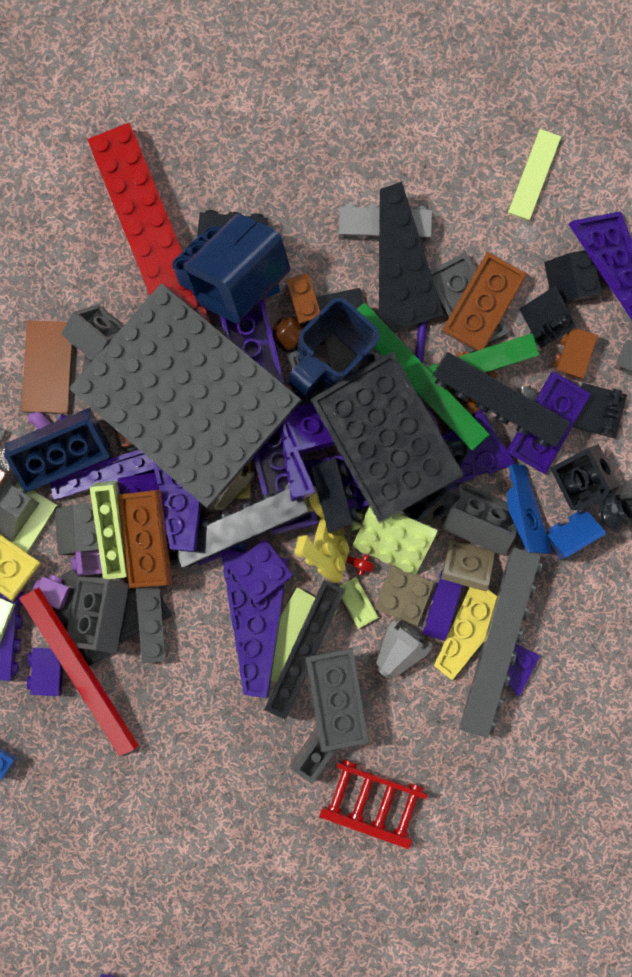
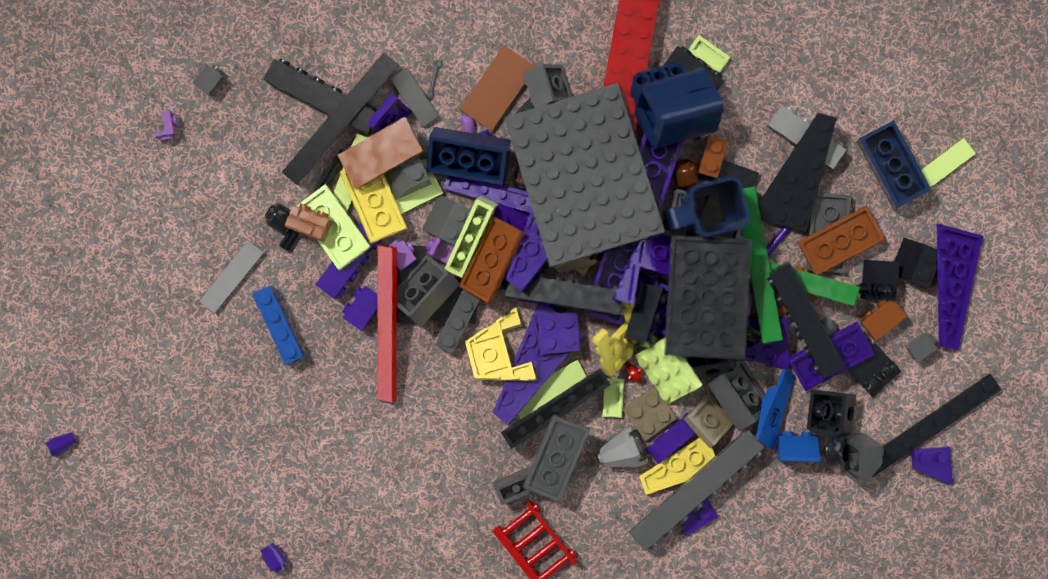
camera: 30 degrees right, 5 degrees up
(204, 637) = (490, 355): none -> light yellow wing
(237, 202) = (709, 53): none -> yellowish green tile
(488, 195) = (893, 165): none -> dark blue brick

